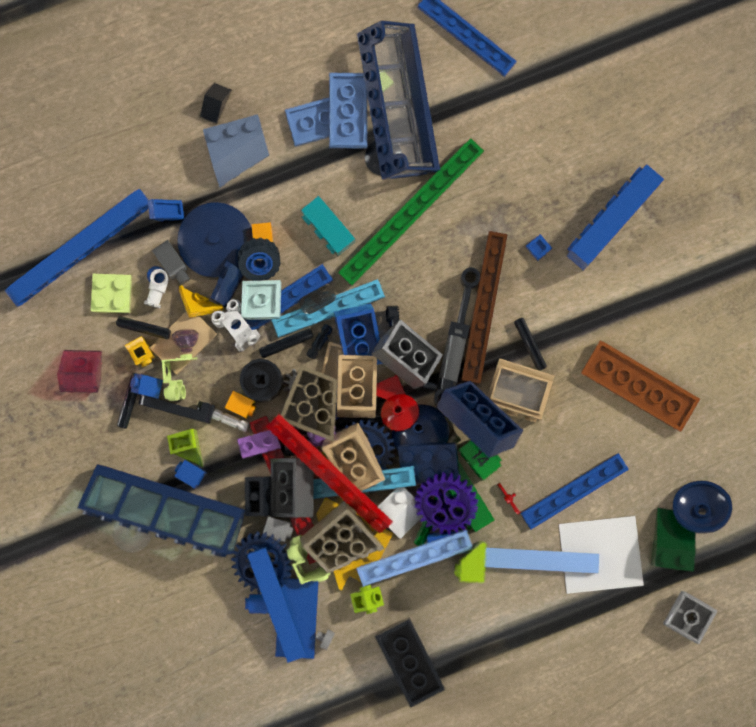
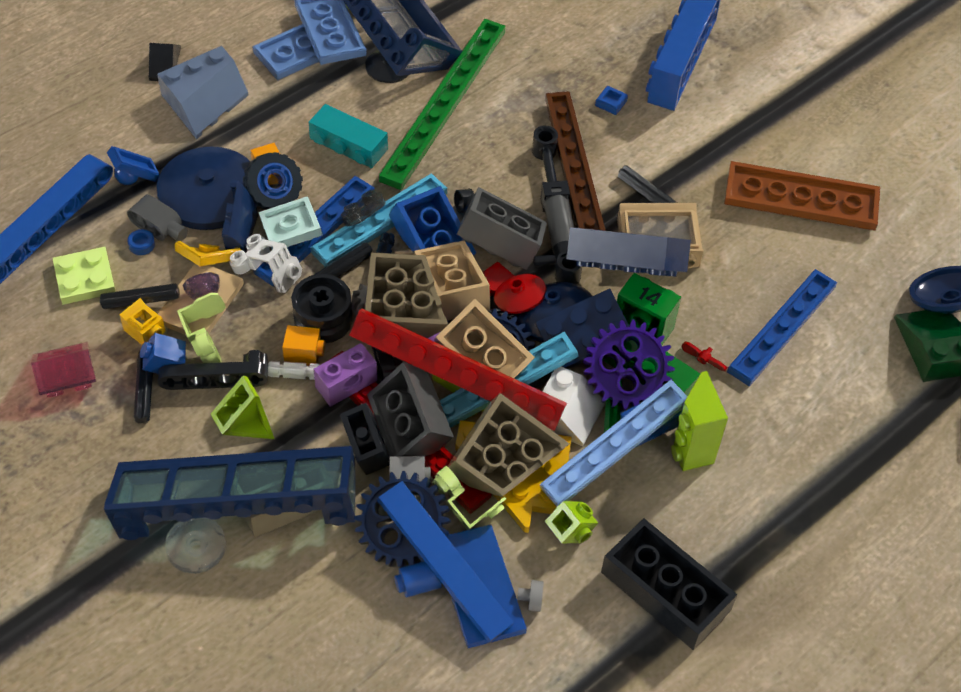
camera: 25 degrees left, 30 degrees down
(156, 289) = (145, 250): white connector -> none
(189, 473) = (257, 439): blue brick -> none
(542, 560) = (792, 411): light blue tile -> none
(617, 549) = (854, 389): white sticker -> none

